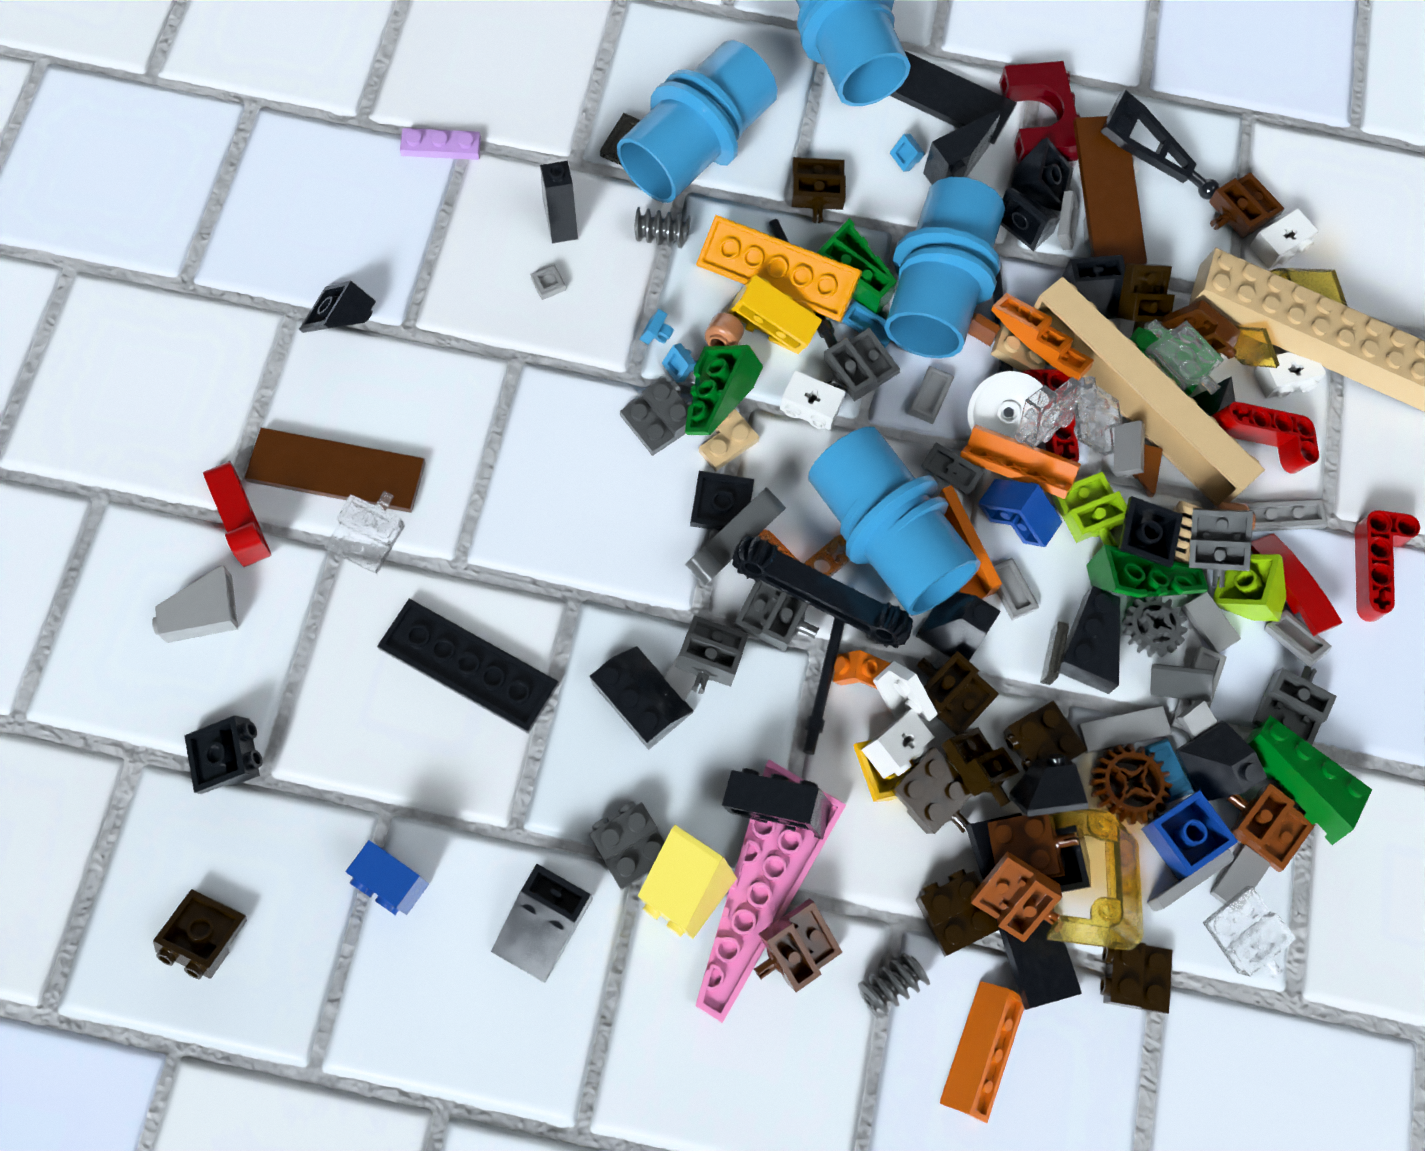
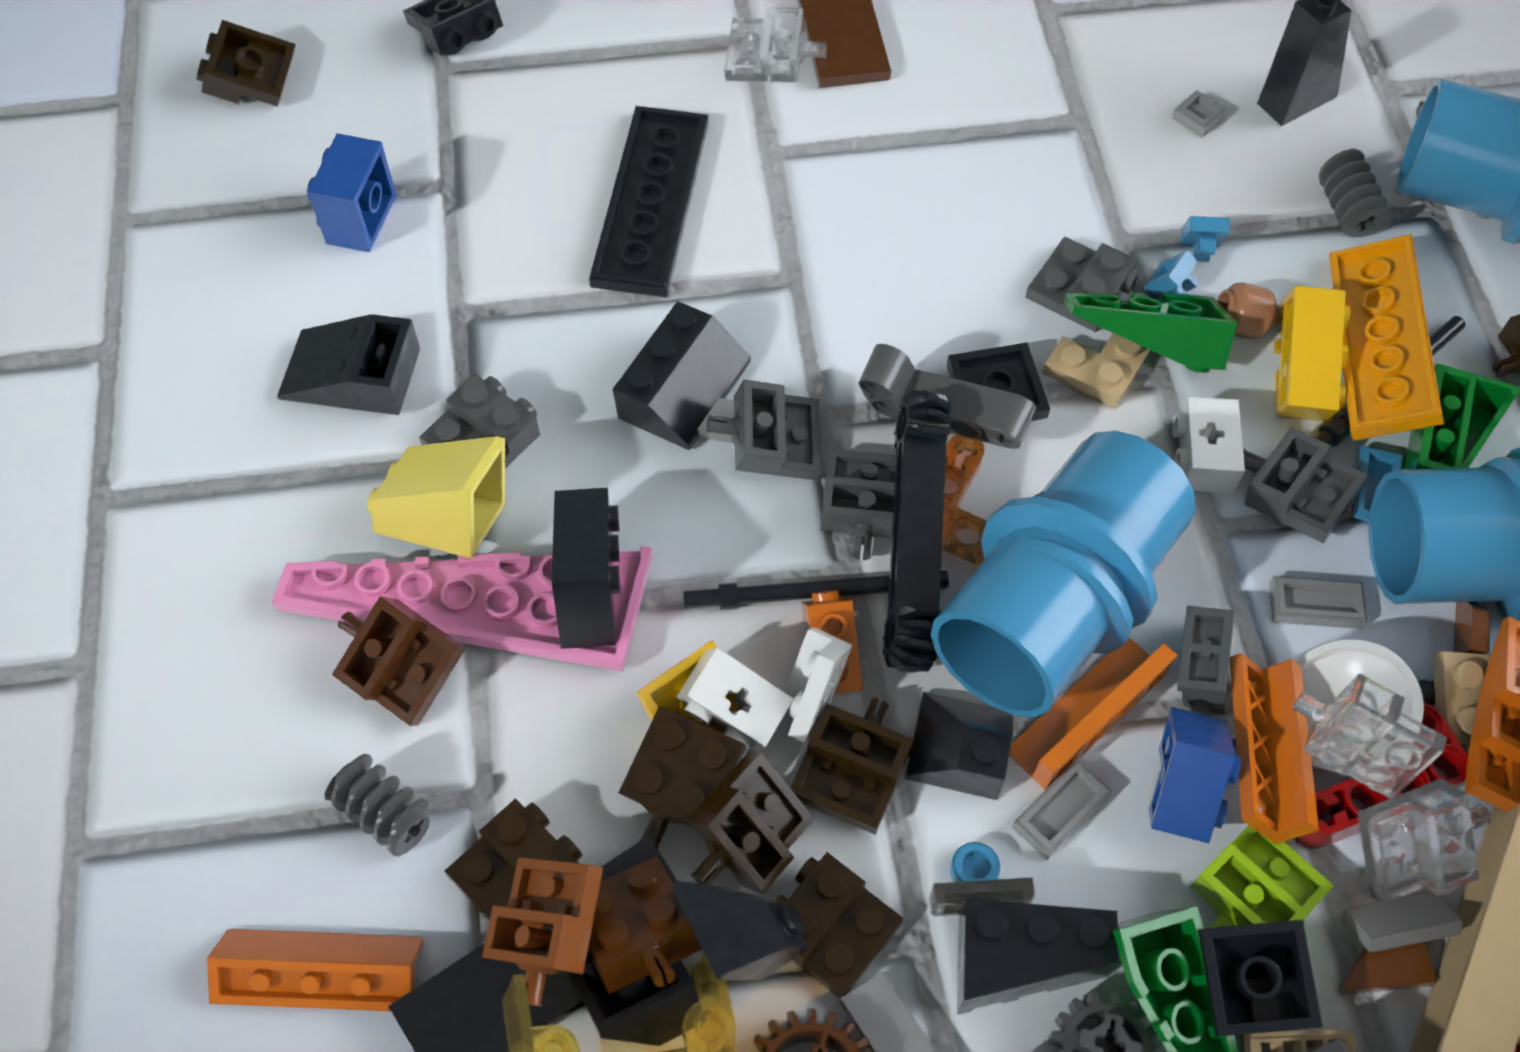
camera: 75 degrees right, 10 degrees down
(1032, 650) = (974, 863): none -> dark azure tile

